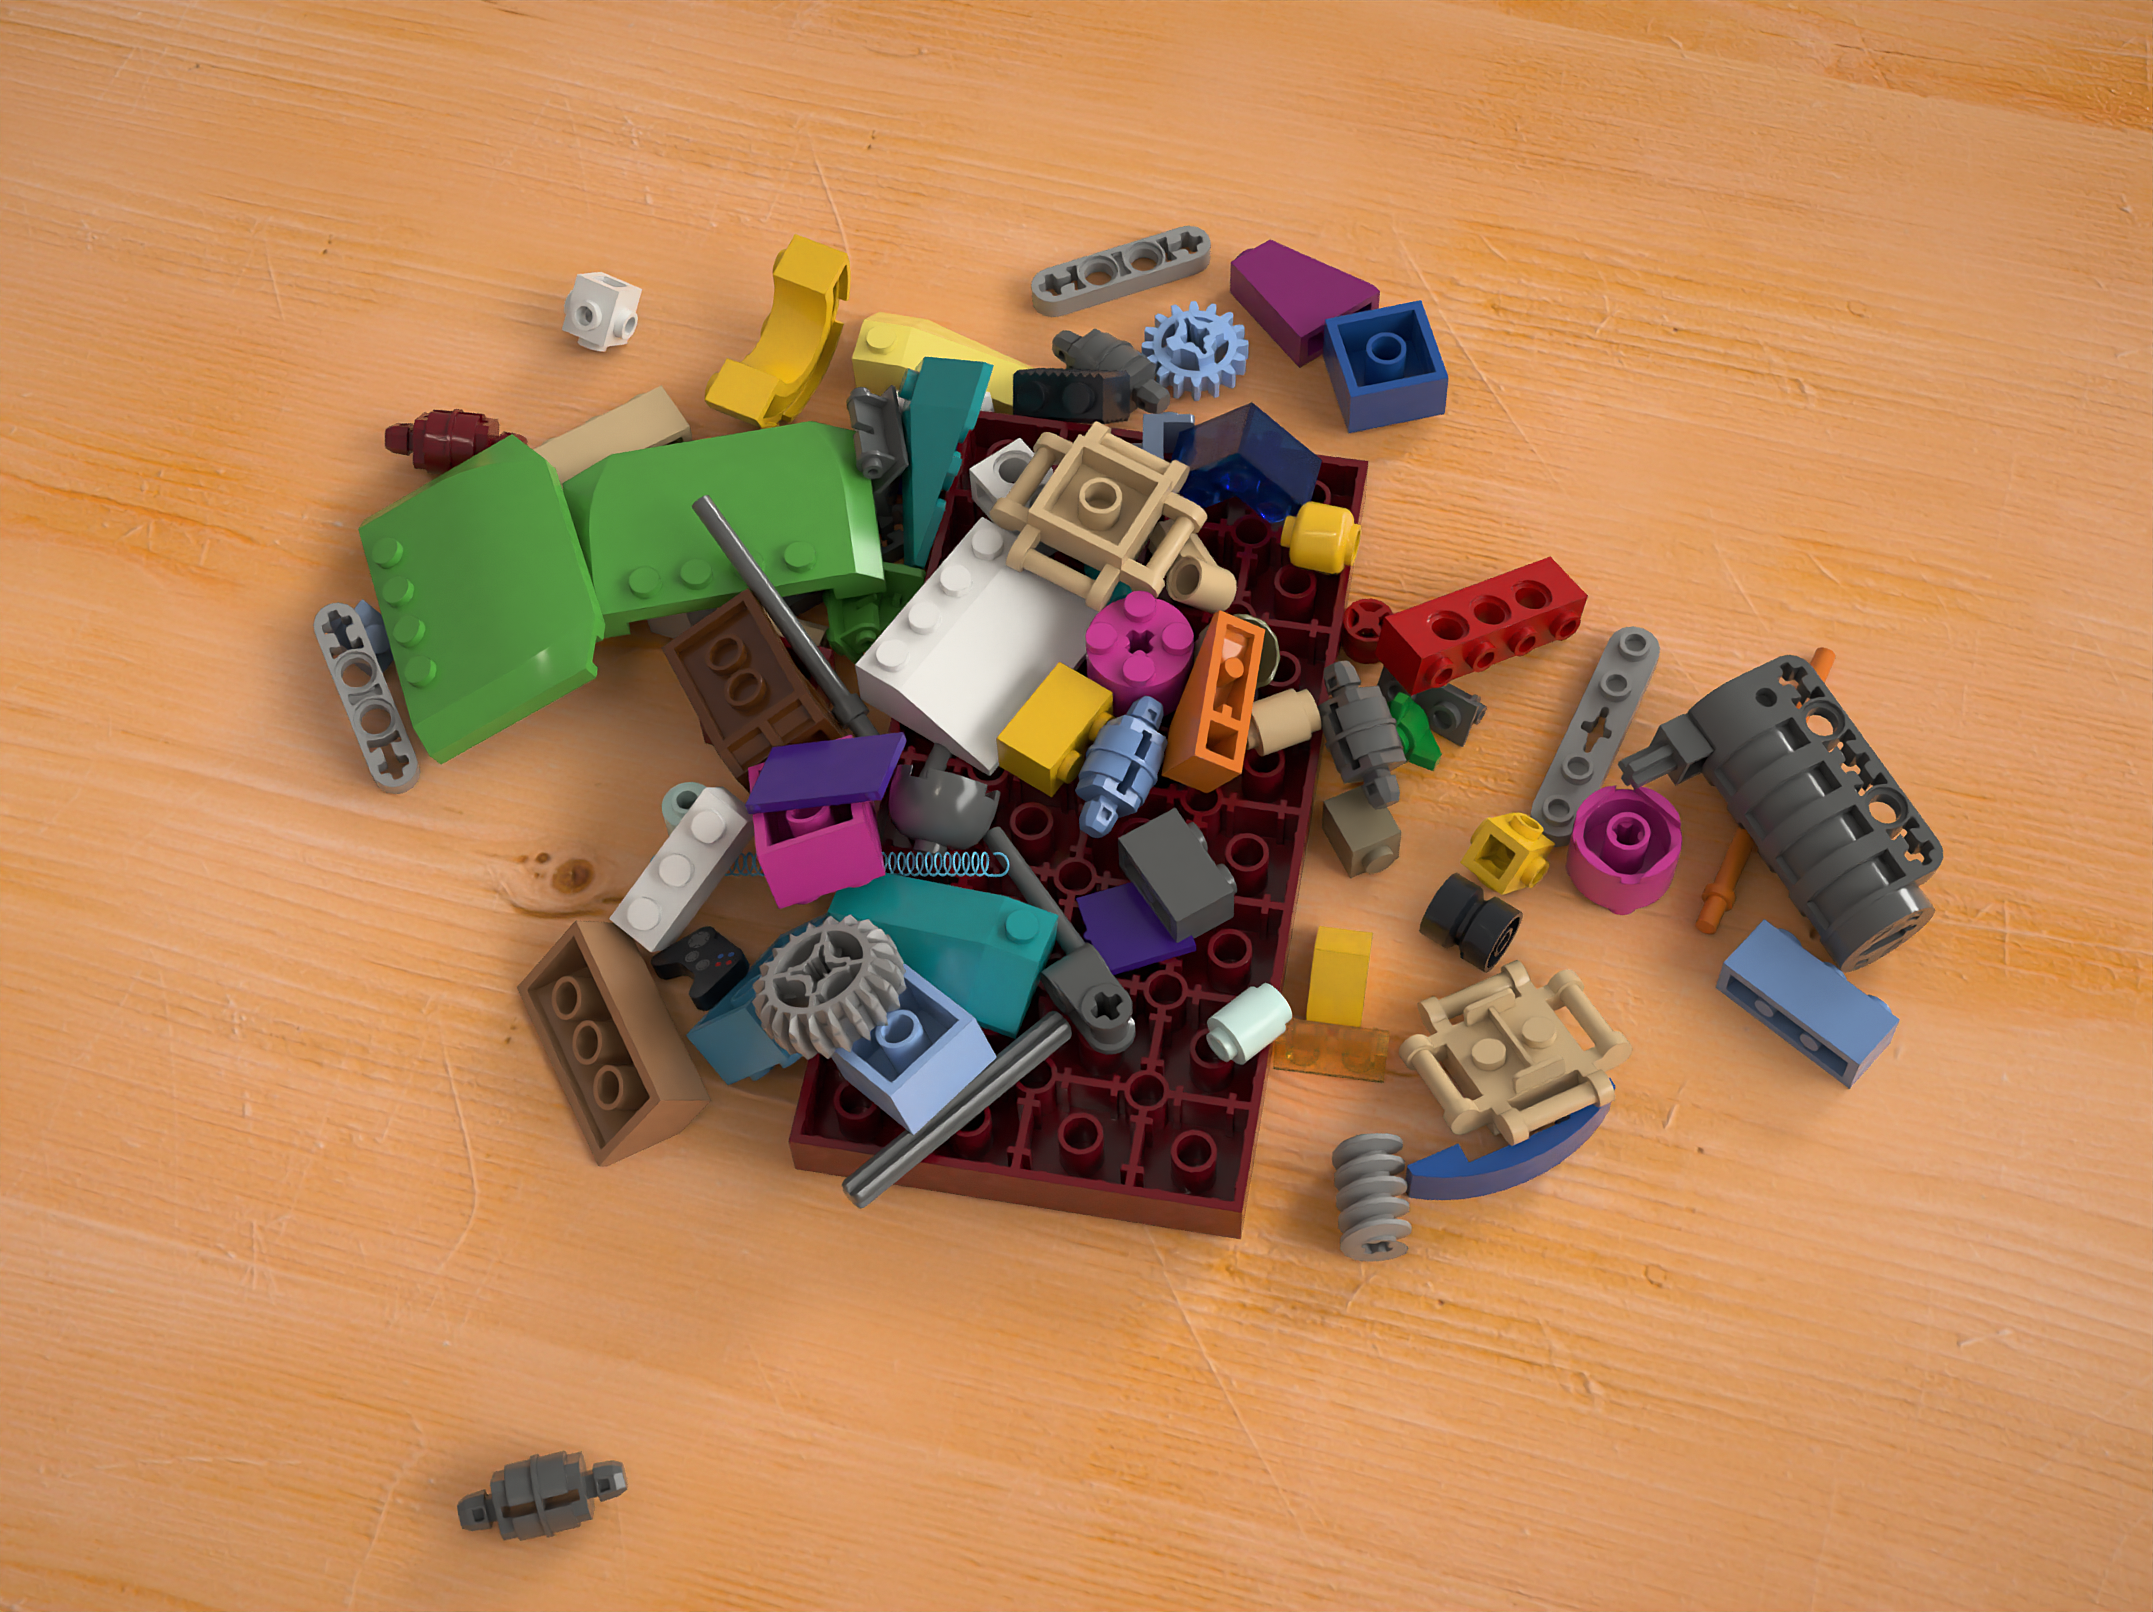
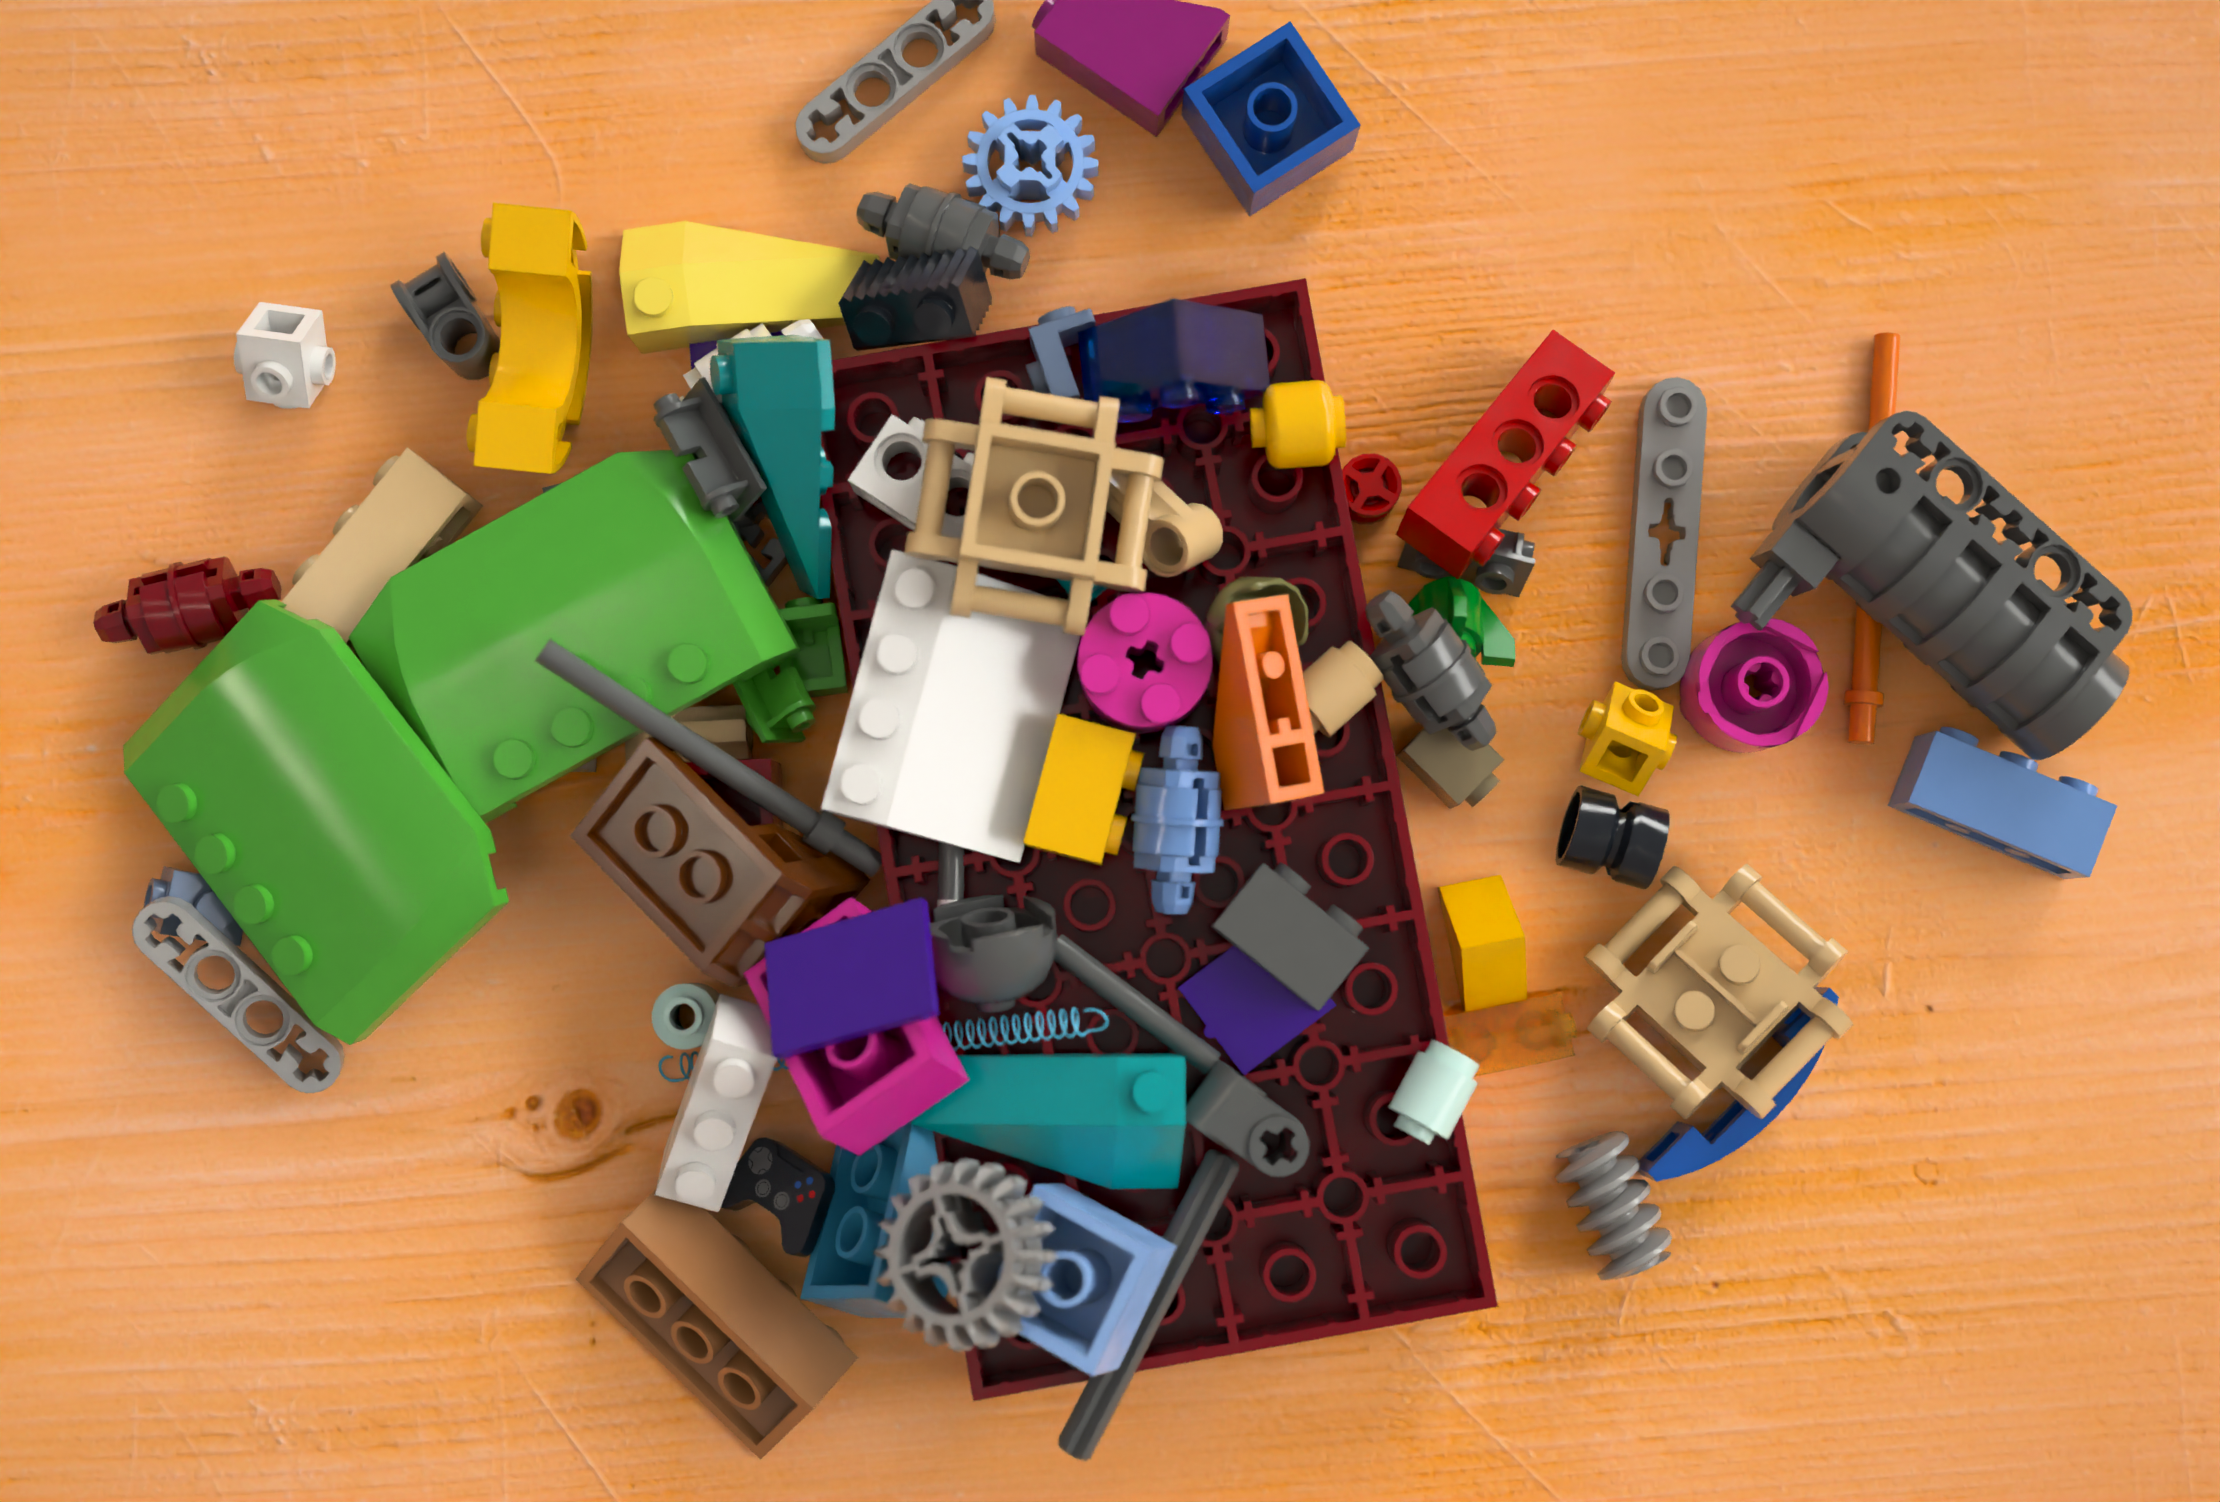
camera: 25 degrees left, 25 degrees up
(728, 323) = (445, 312): none -> dark grey piece

